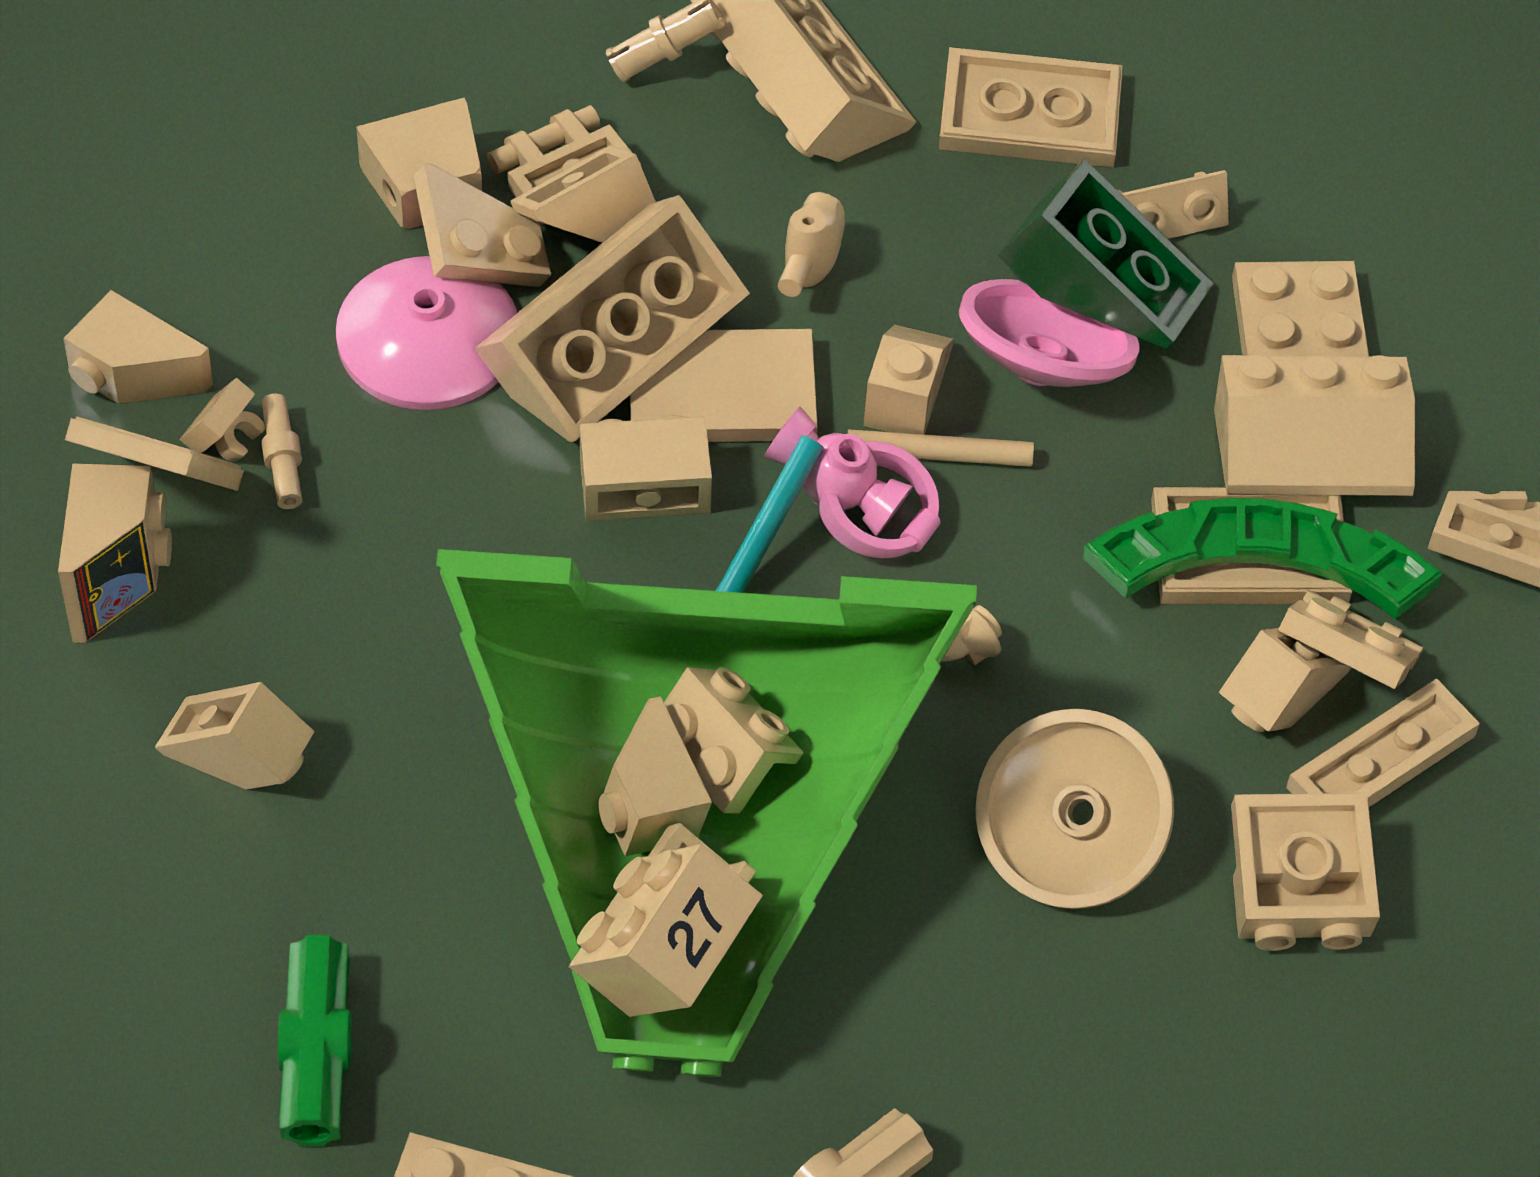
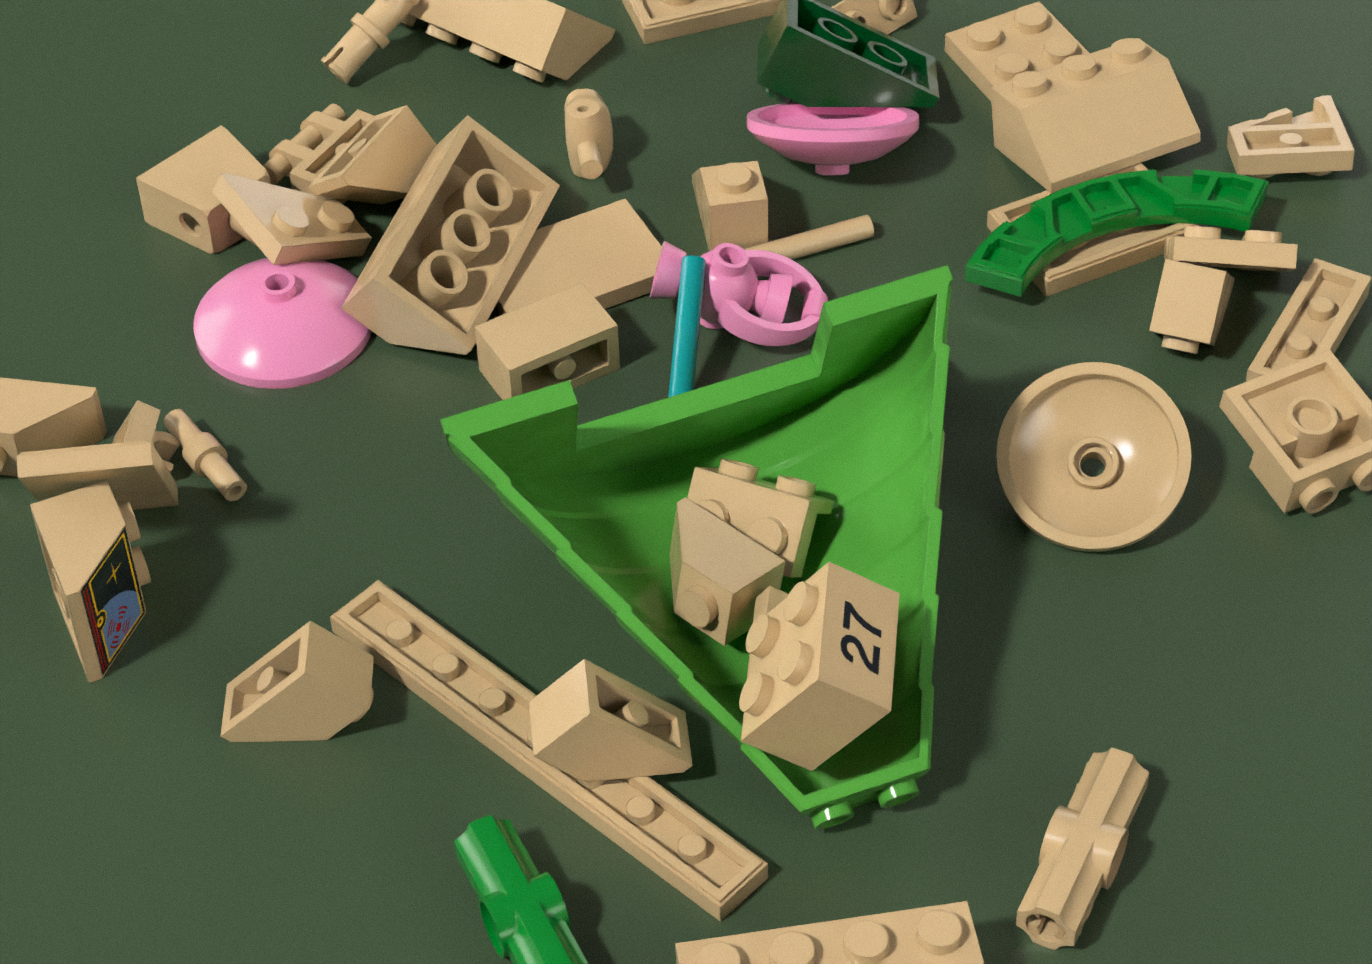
camera: 20 degrees left, 10 degrees down
(428, 885) = (495, 711): none -> tan tile
(473, 897) = (607, 728): none -> tan slope

